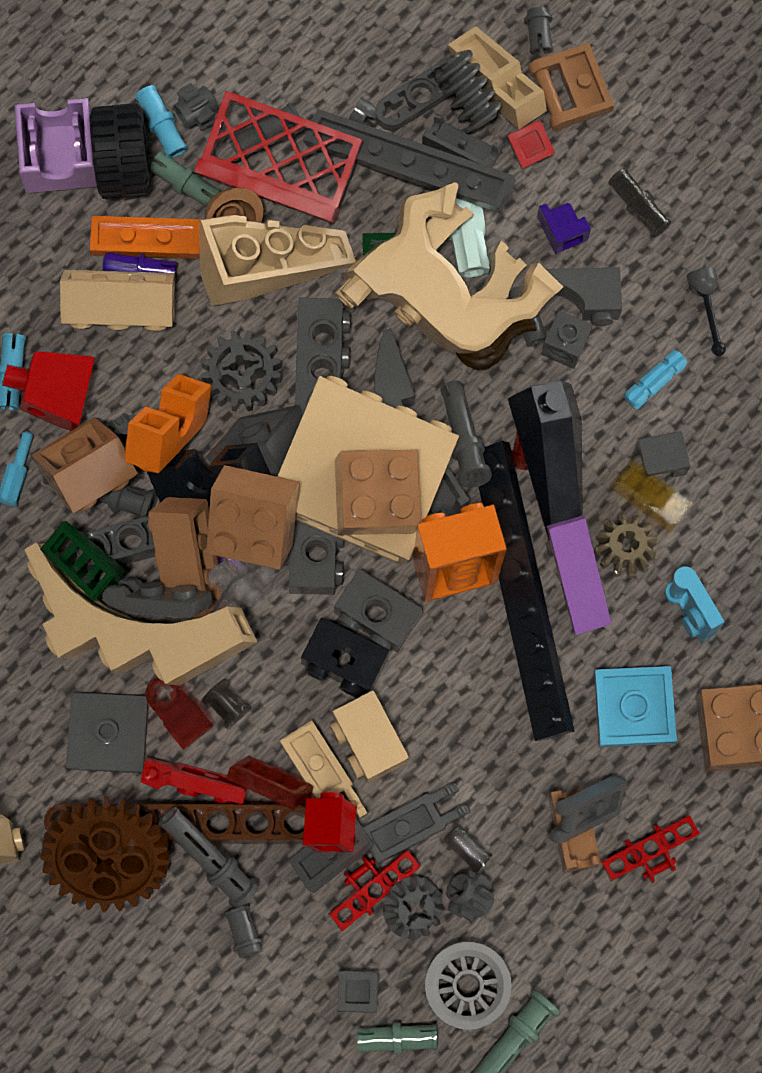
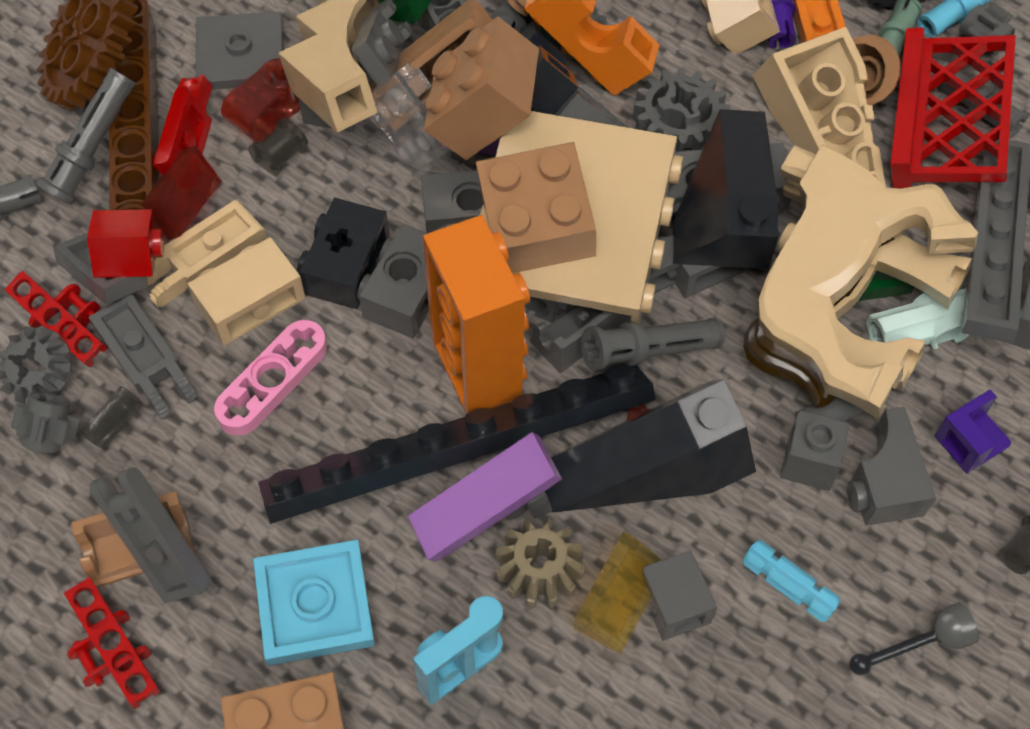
camera: 85 degrees right, 15 degrees down
(358, 347) = (731, 198): none -> black wedge
(447, 709) = (270, 358): none -> bright pink beam

